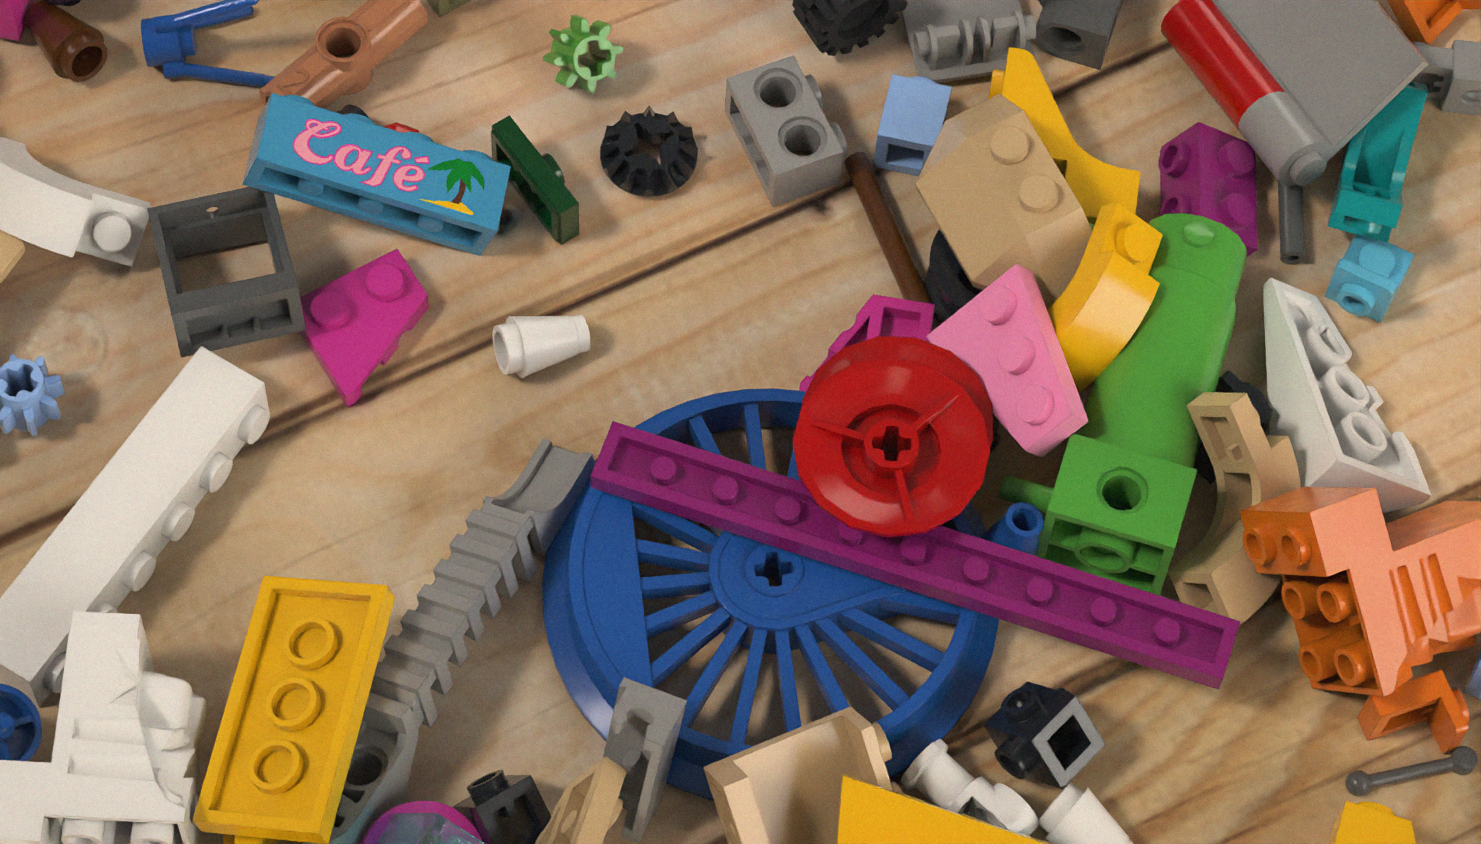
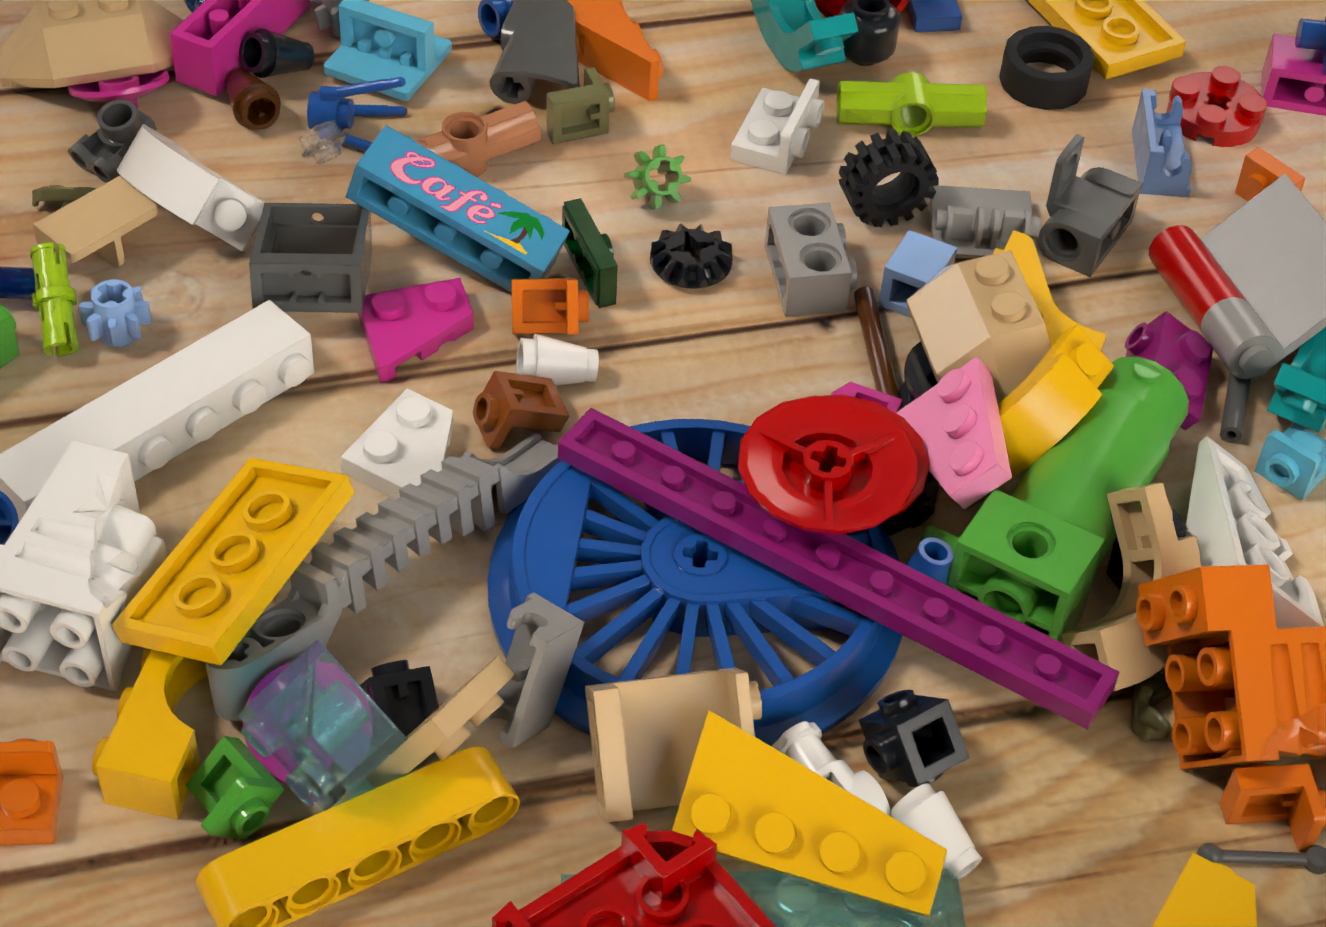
camera: 15 degrees right, 15 degrees down
(175, 88) = (323, 142): none -> clear plate
(406, 494) = (401, 444): none -> white wing
(512, 268) = (548, 306): none -> orange bracket
(517, 411) = (518, 402): none -> dark orange bracket
(1267, 641) = (1145, 720): none -> olive piece

